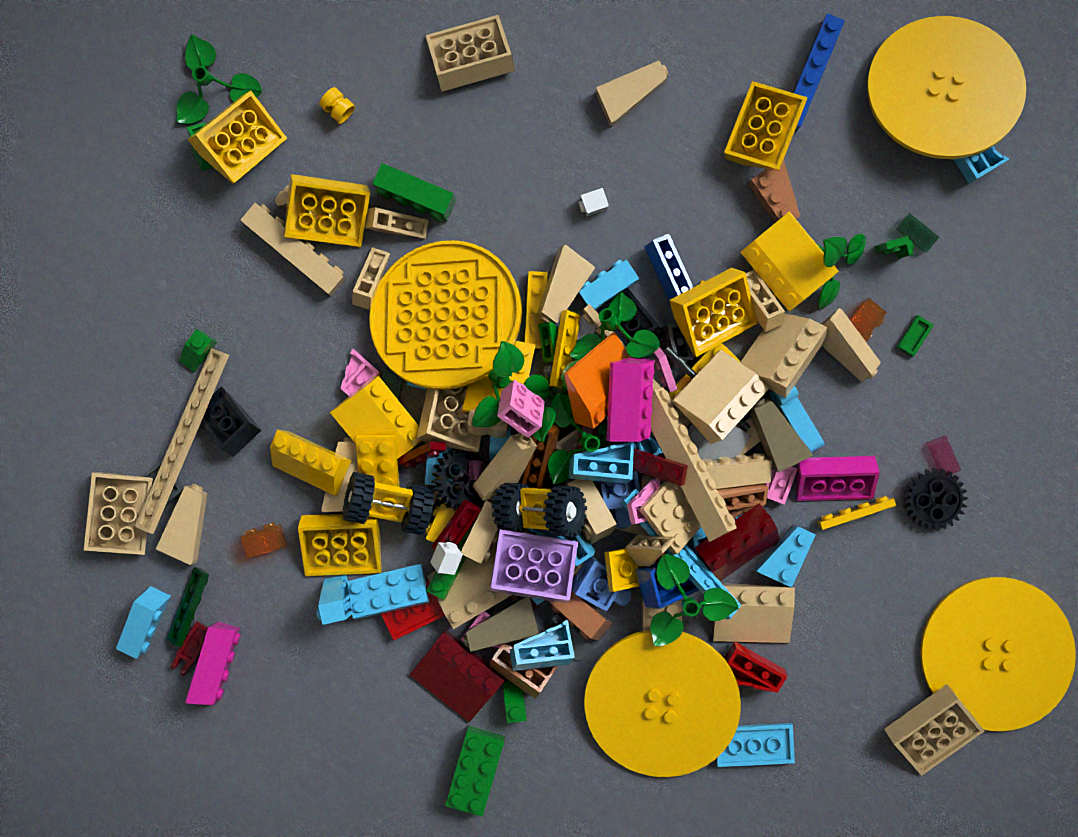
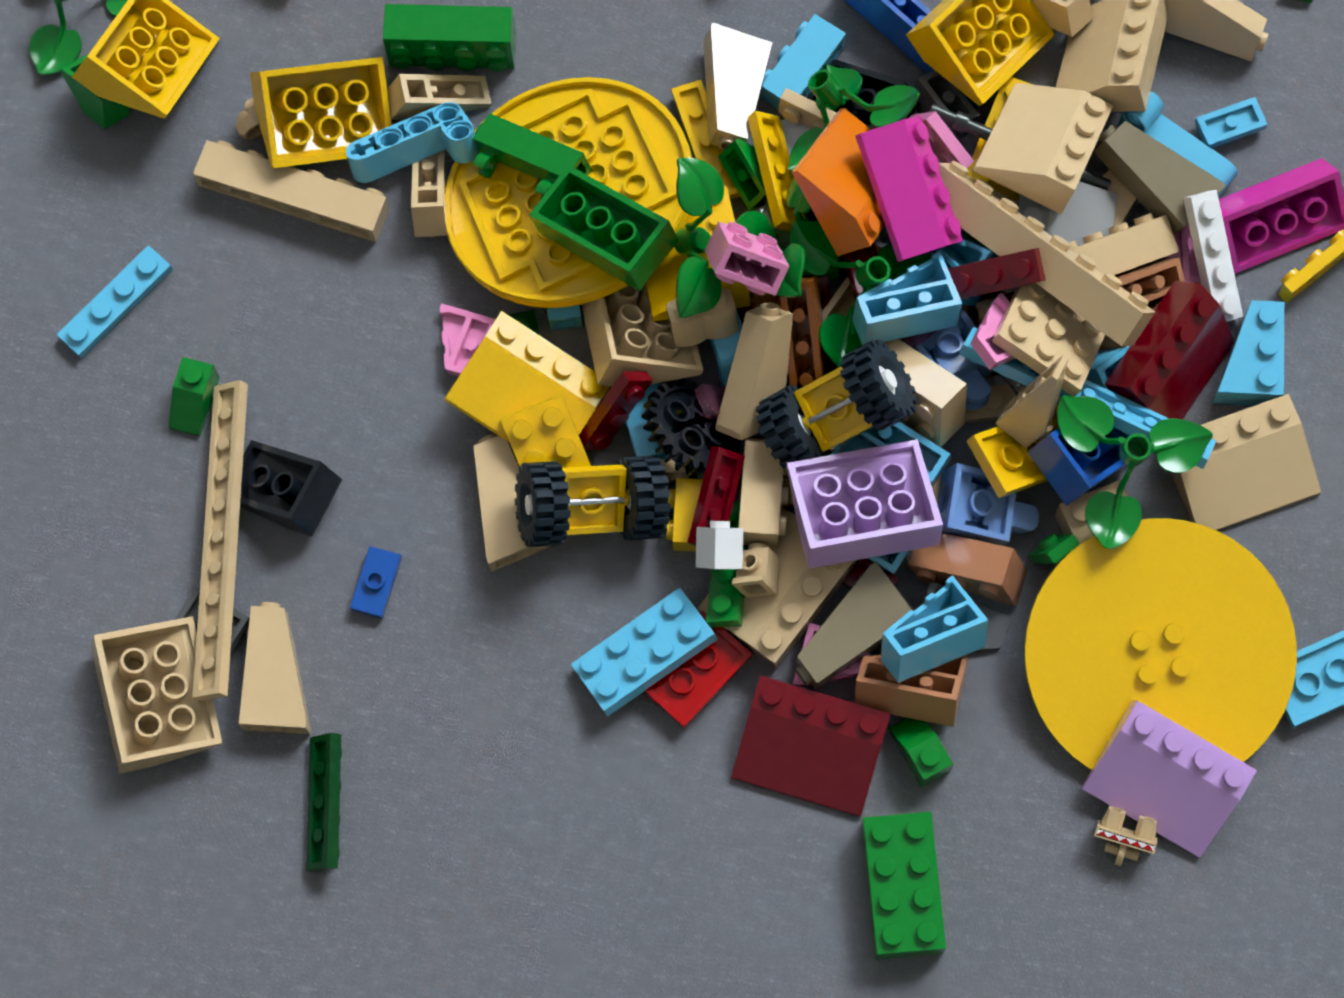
camera: 20 degrees left, 15 degrees down
(142, 622) = (258, 856): medium azure wedge -> none
(174, 276) = (114, 302): none -> medium azure plate
(191, 647) = (354, 867): dark red hinge -> none
(213, 664) = (402, 874): dark pink slope -> none
(260, 494) = (376, 582): none -> blue plate
(263, 541) = (410, 649): clear orange brick -> none
(308, 461) = (438, 492): yellow slope -> none
(334, 600) = (567, 695): medium azure wedge -> none
(339, 546) = (538, 609): yellow slope -> none
(363, 248) = (412, 141): none -> medium azure beam
(442, 298) = (524, 151): none -> green brick
(451, 353) = (604, 227): none -> green brick
(464, 576) = (759, 572): none -> tan brick
(602, 791) = (1112, 830): none -> tan hips
(629, 623) = (1053, 548): none -> green plate
(639, 770) = (1170, 776): none -> lavender slope
(754, 670) = (1286, 546): red wedge -> none
(788, 492) = (1213, 251): none -> white plate
(834, 413) = (1231, 123): none -> medium azure plate

